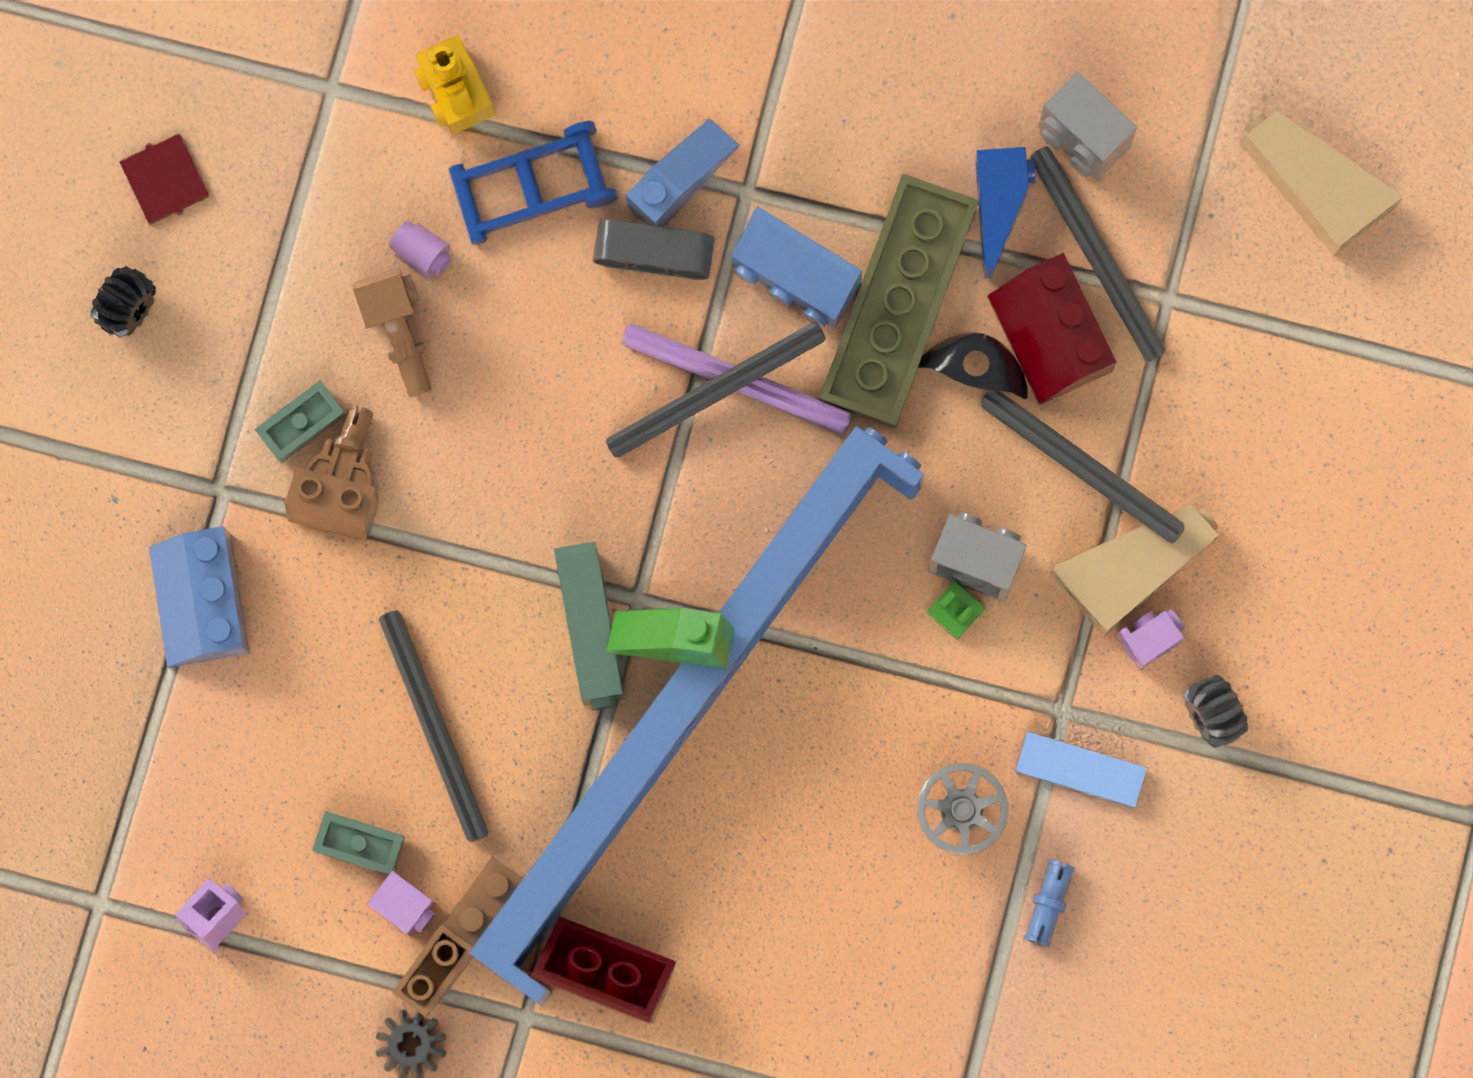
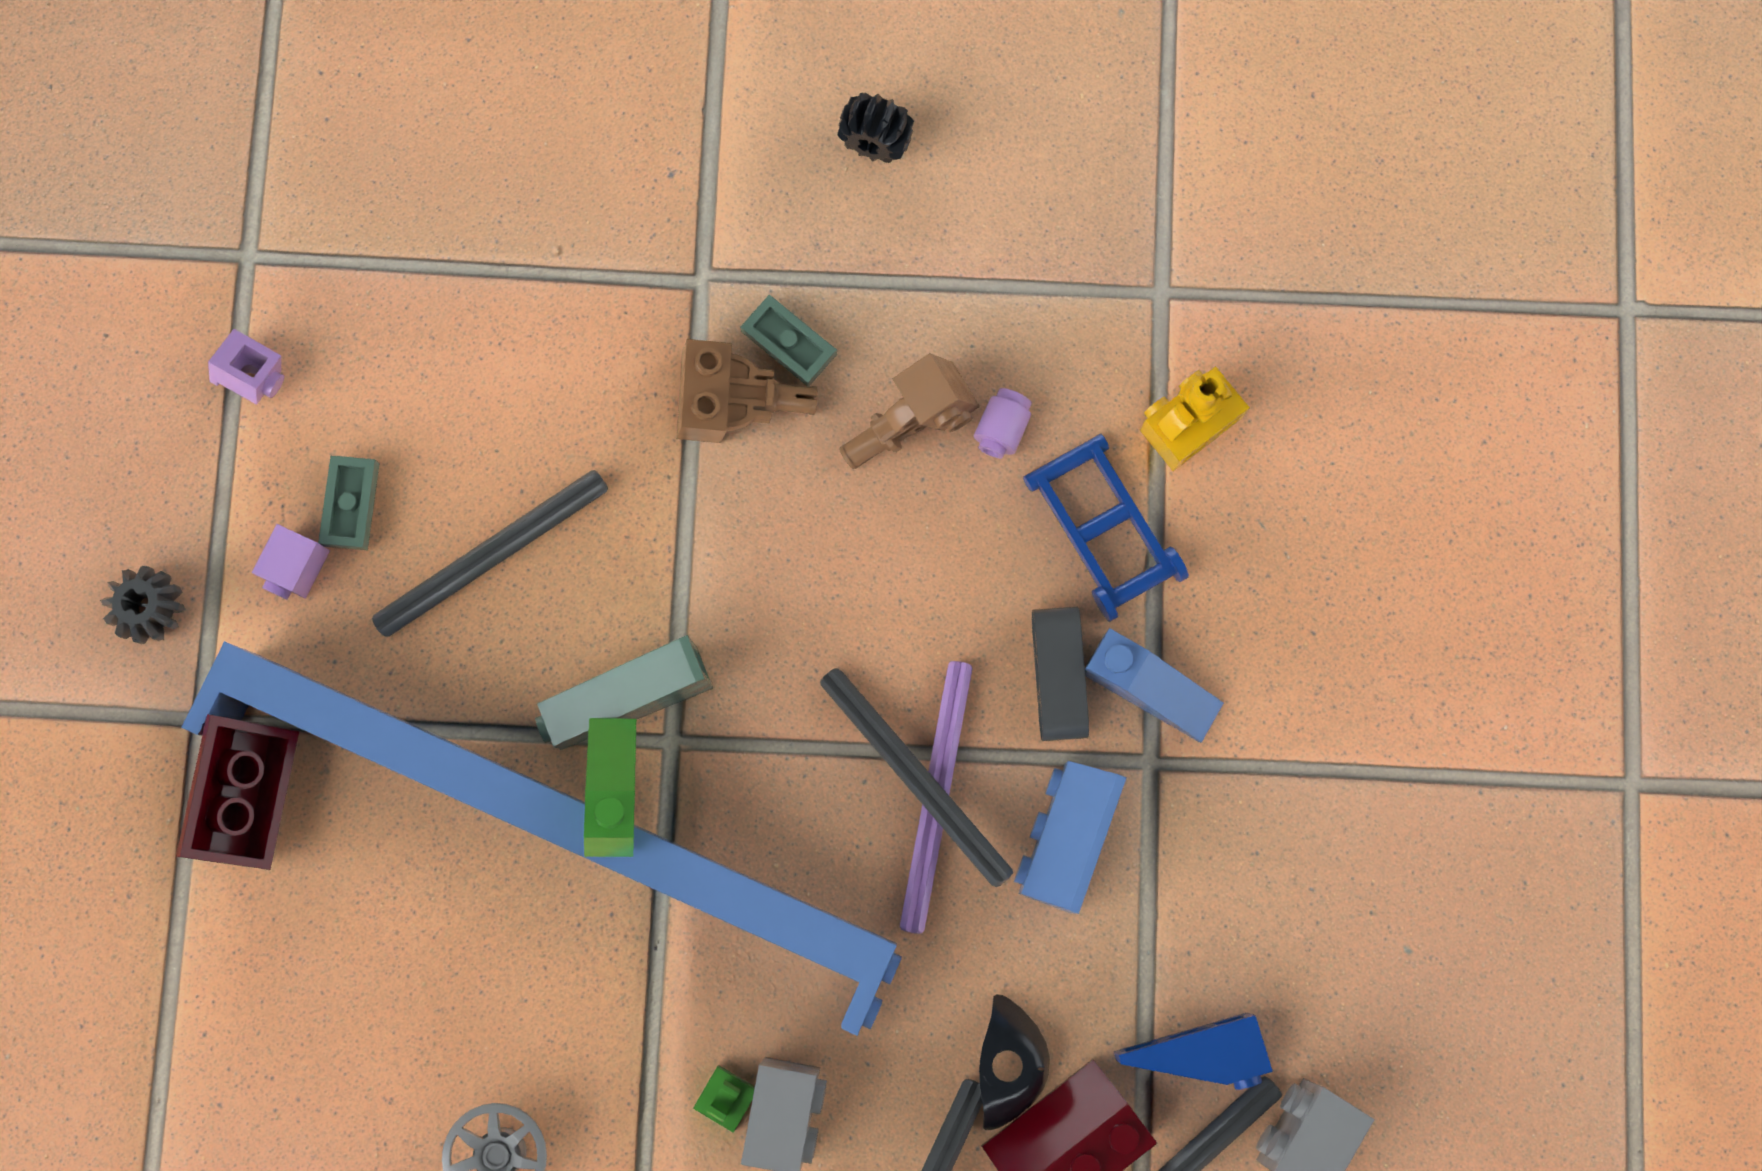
camera: 75 degrees right, 0 degrees up
(164, 179) = (1022, 144): dark red piece -> none
(198, 597) = (579, 283): medium blue slope -> none
(449, 948) = (261, 630): medium nougat slope -> none
(899, 300) = (1064, 961): olive plate -> none

